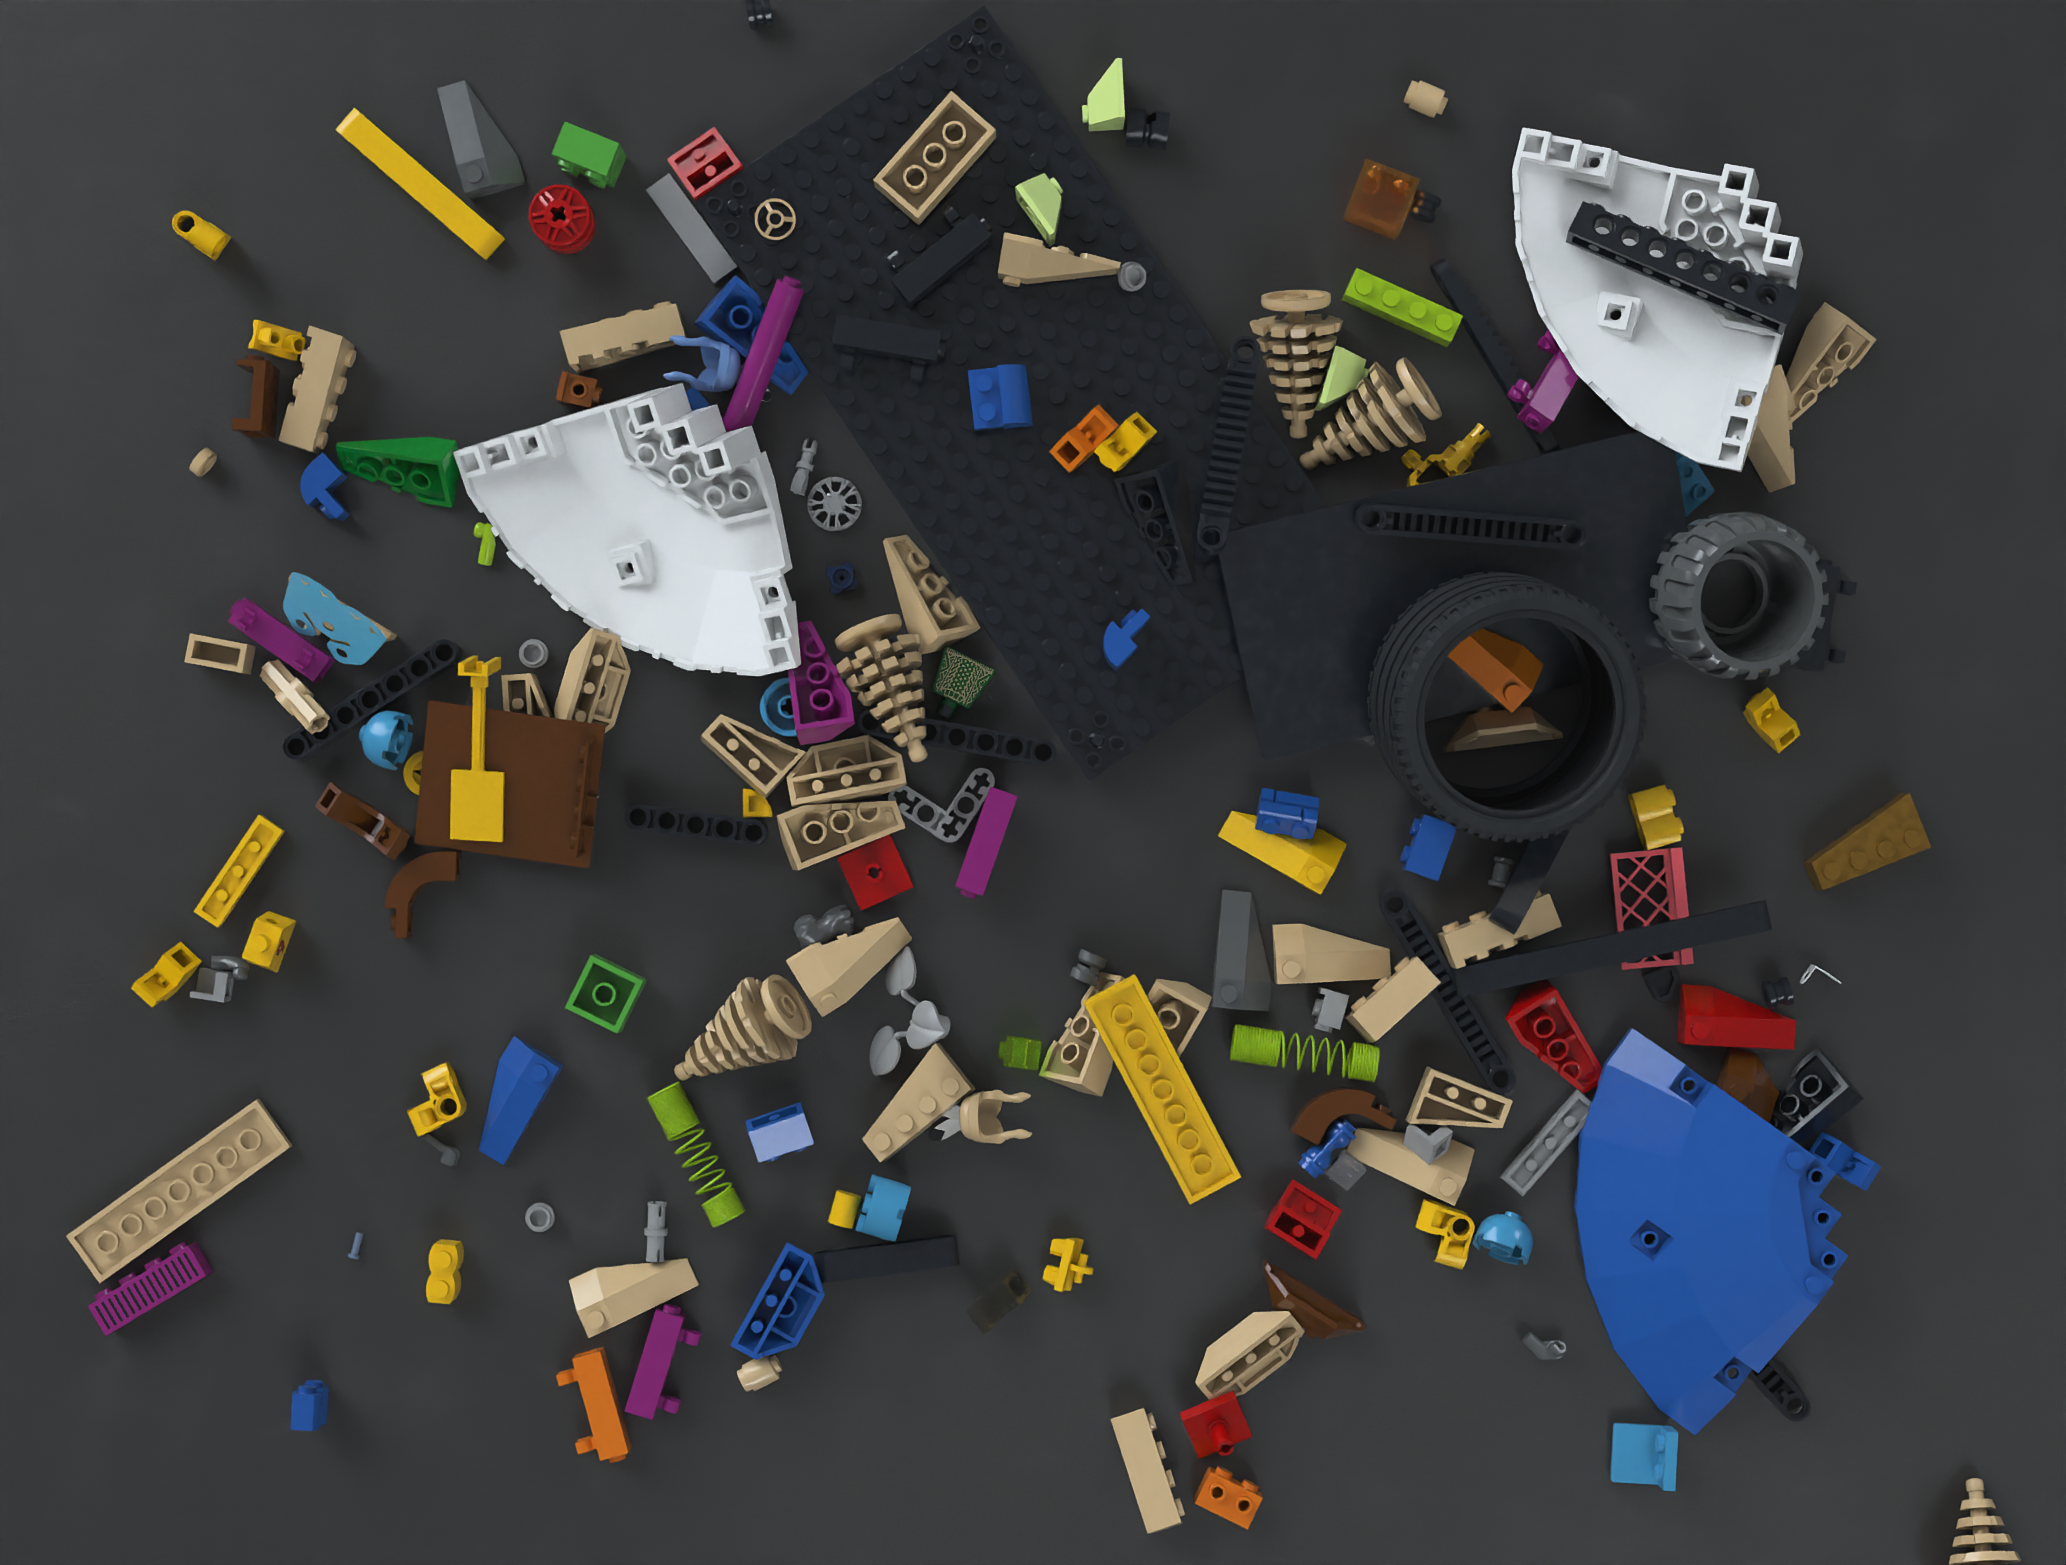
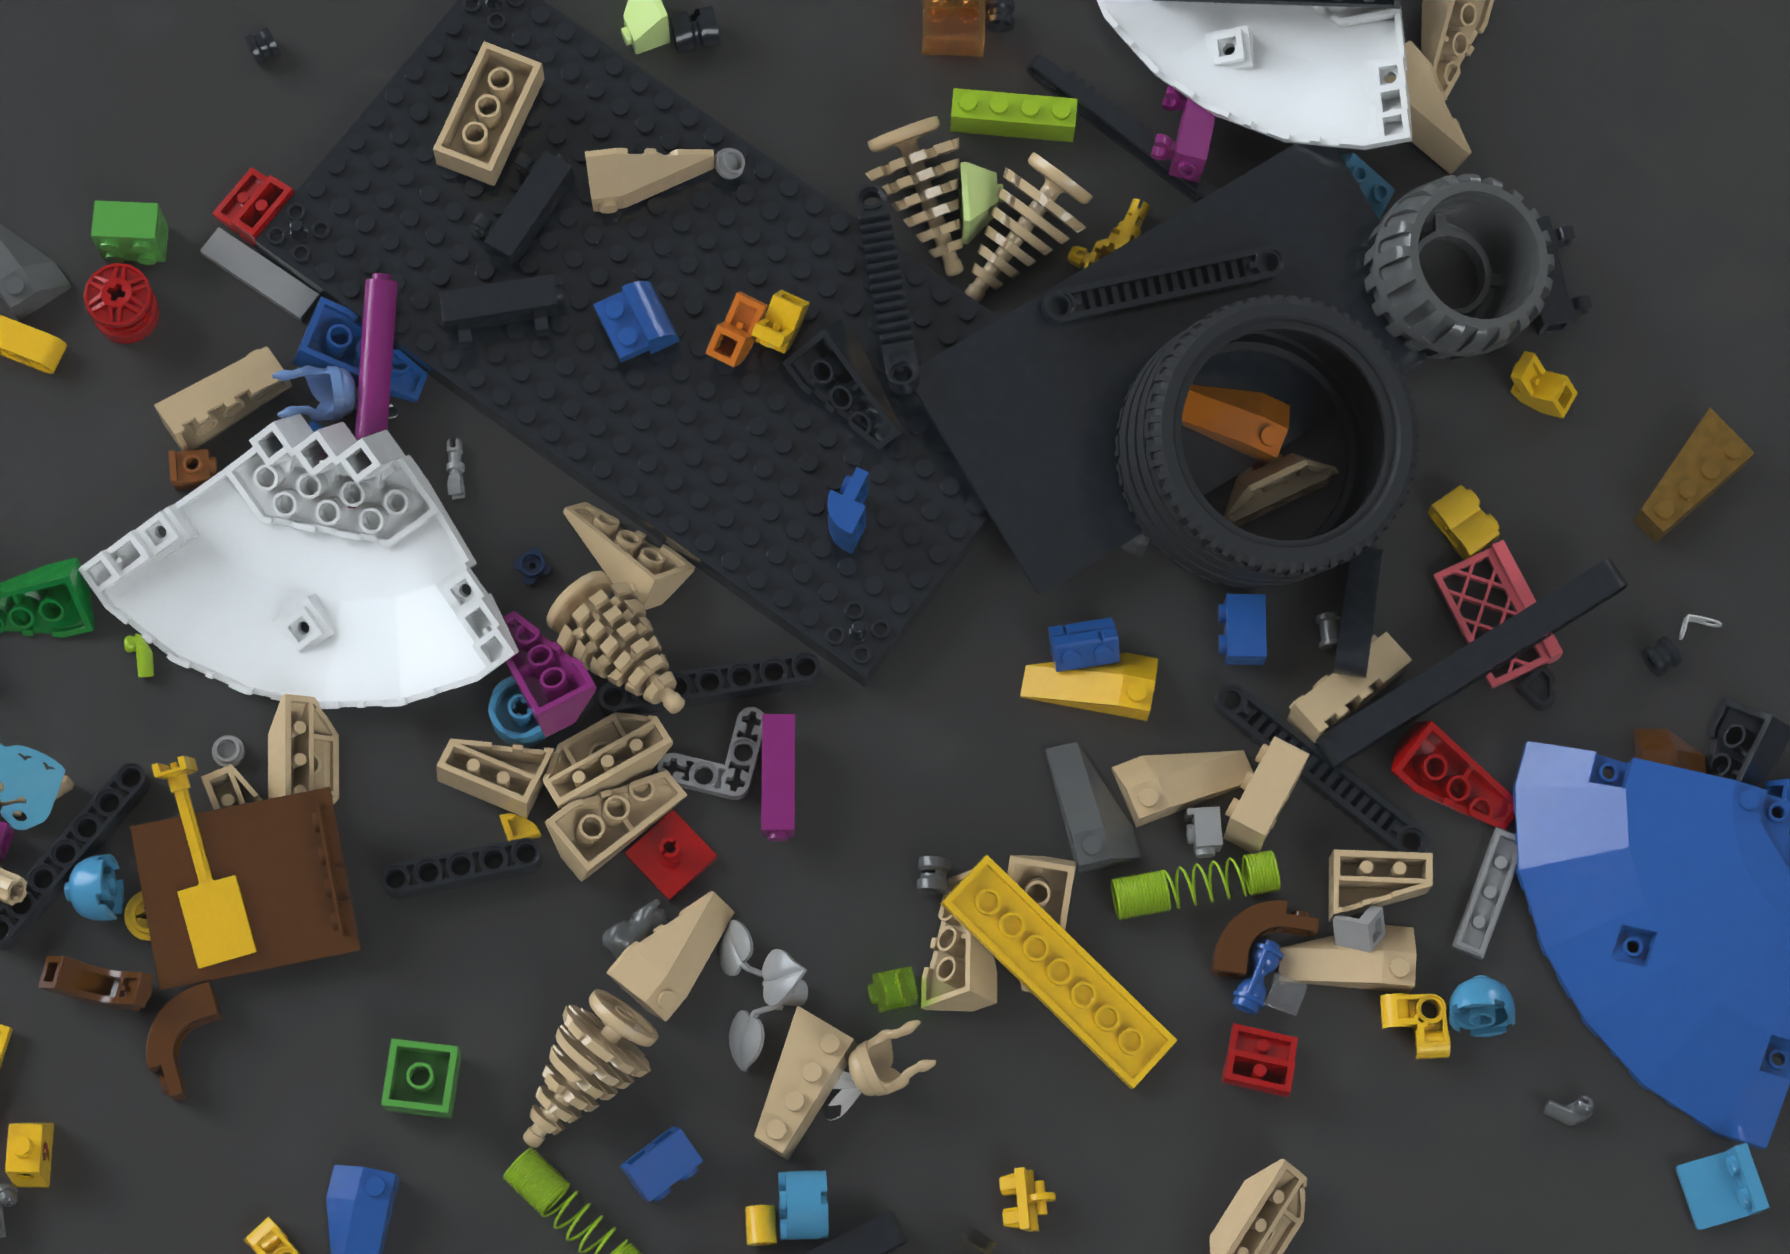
camera: 20 degrees left, 15 degrees down
(771, 226) = (353, 223): tan piece -> none
(834, 504) = (499, 495): light grey wheel -> none
(960, 681) = (693, 626): dark green torso -> none
(1042, 204) = (610, 121): yellowish green slope -> none
(1309, 1308) = (1312, 1155): reddish brown wedge -> none
(1725, 1020) = (1618, 704): red wedge -> none

